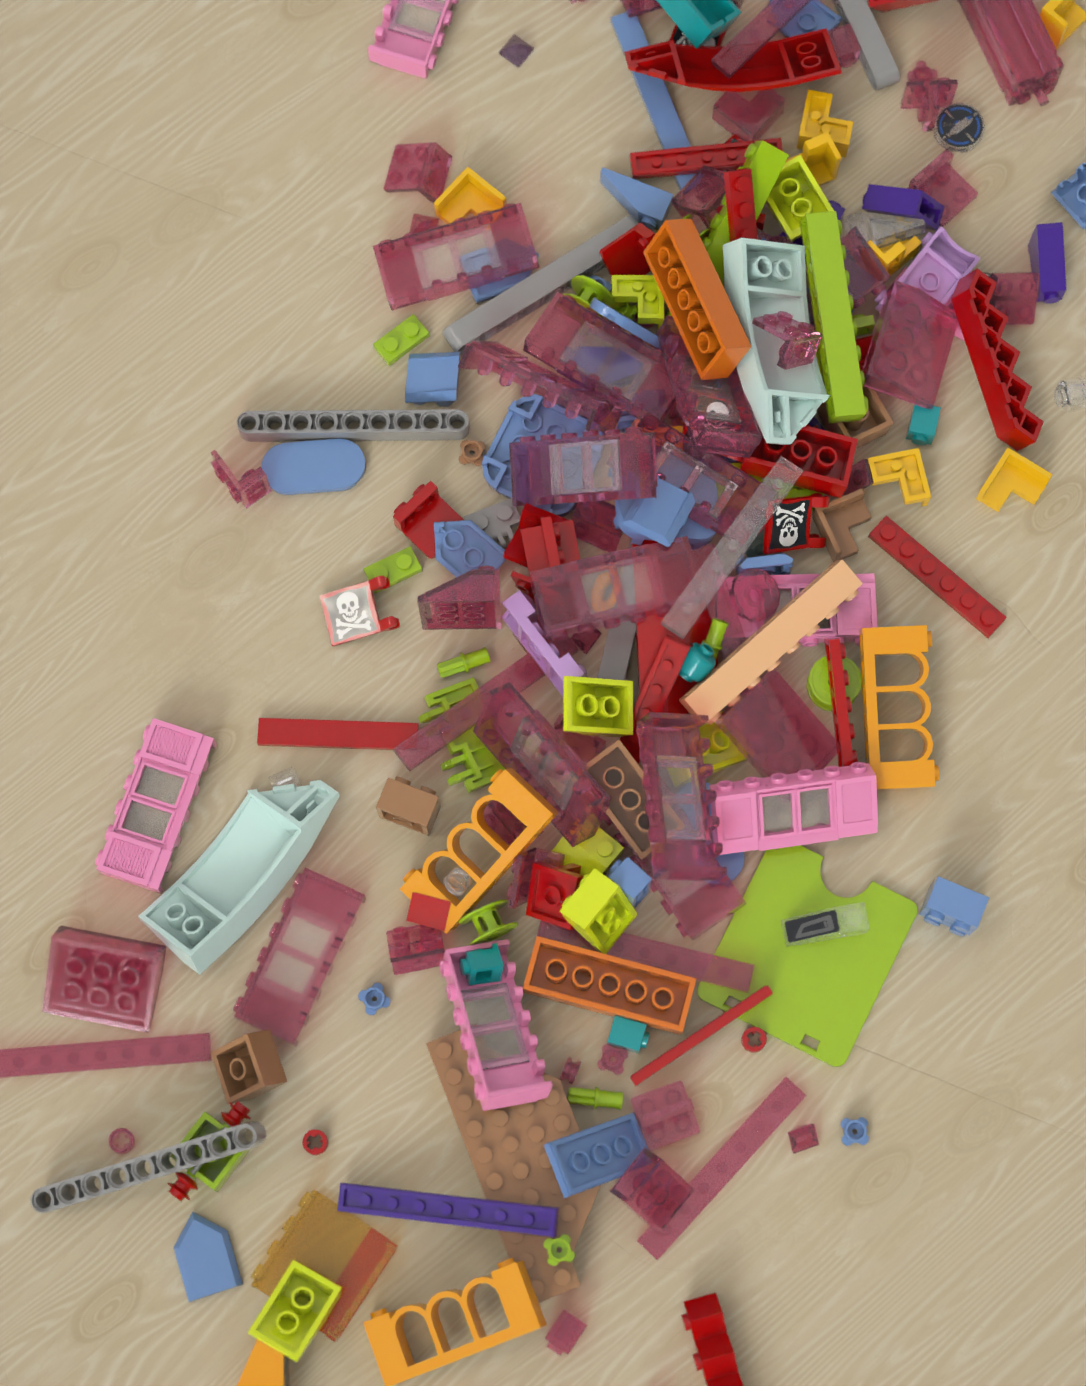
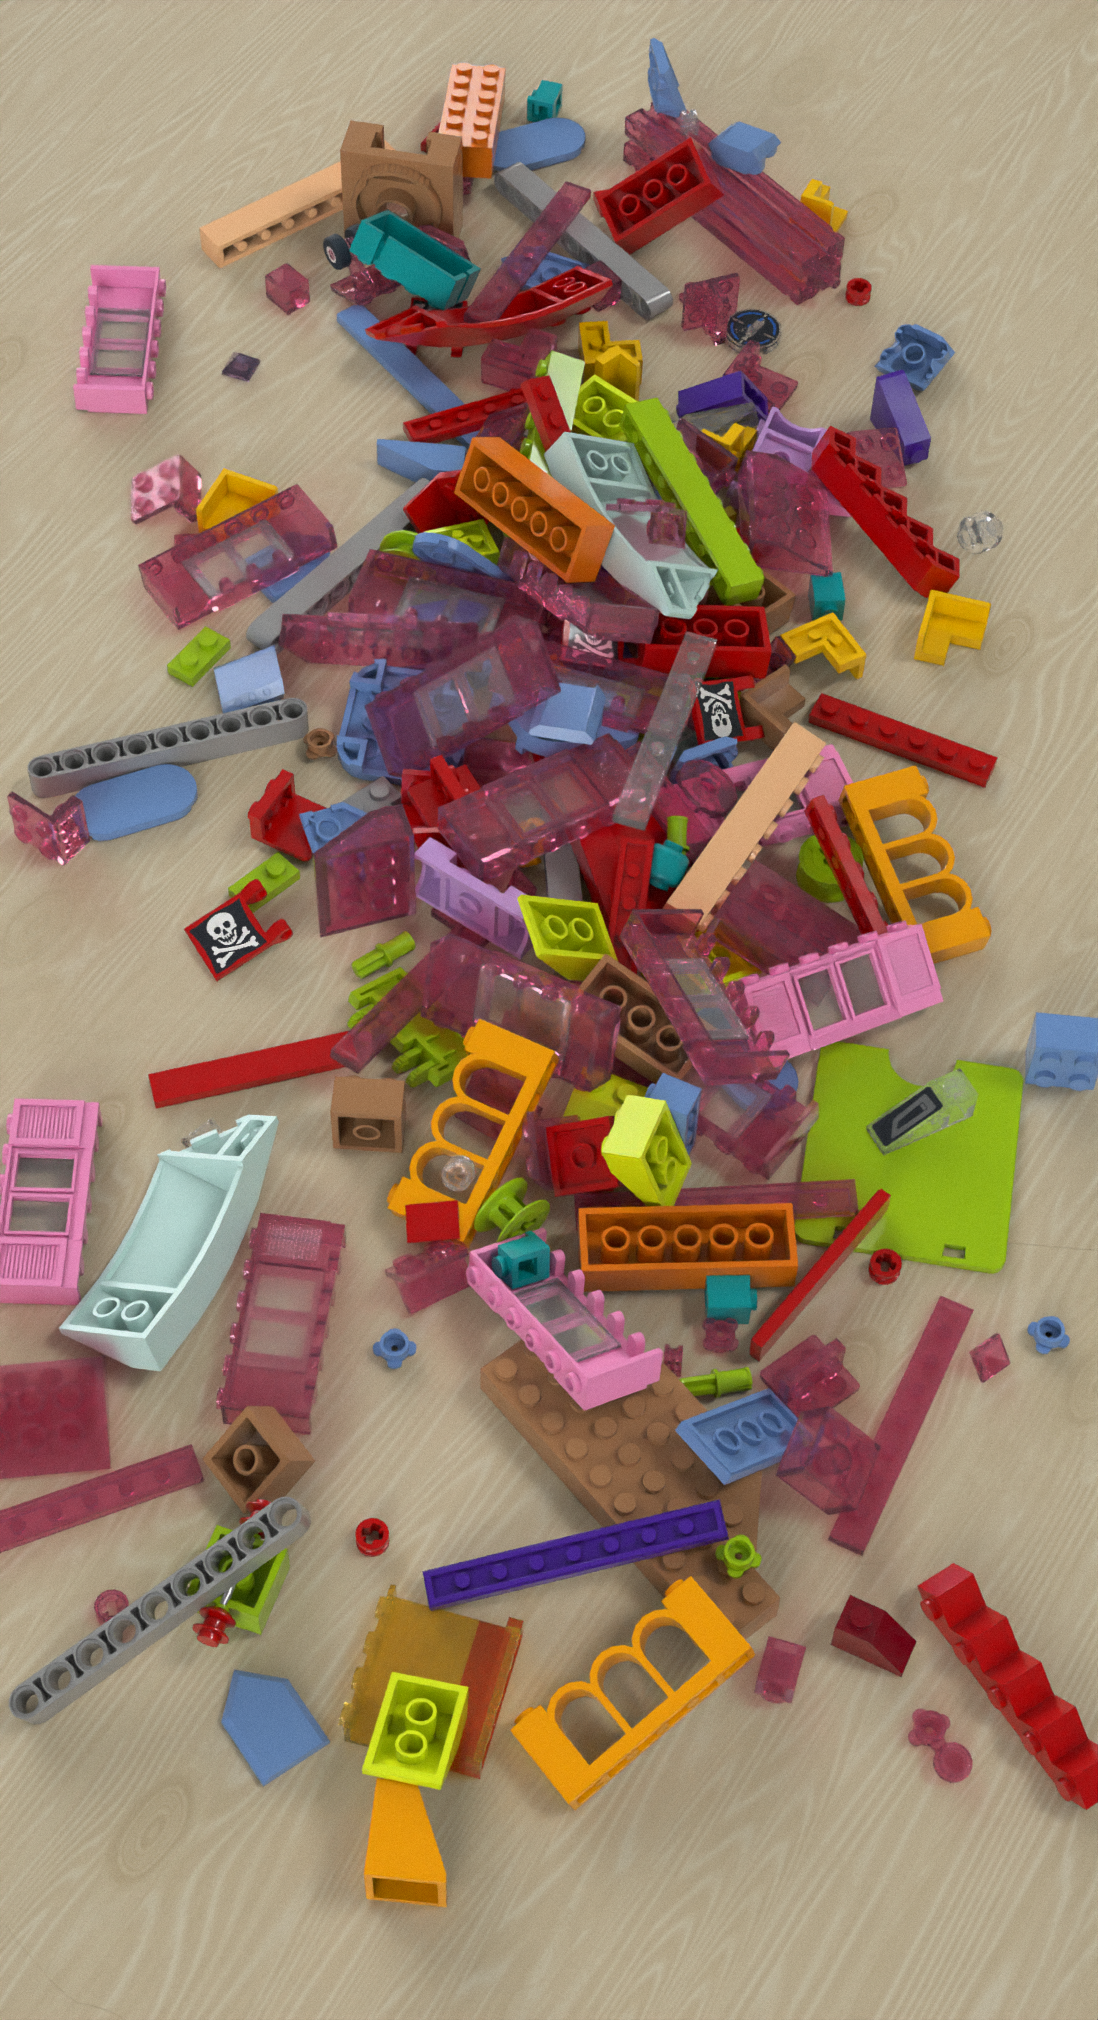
camera: 20 degrees left, 20 degrees down
(641, 1328) = (873, 1636): none -> dark red slope
(1059, 113) = (858, 285): none -> red bush

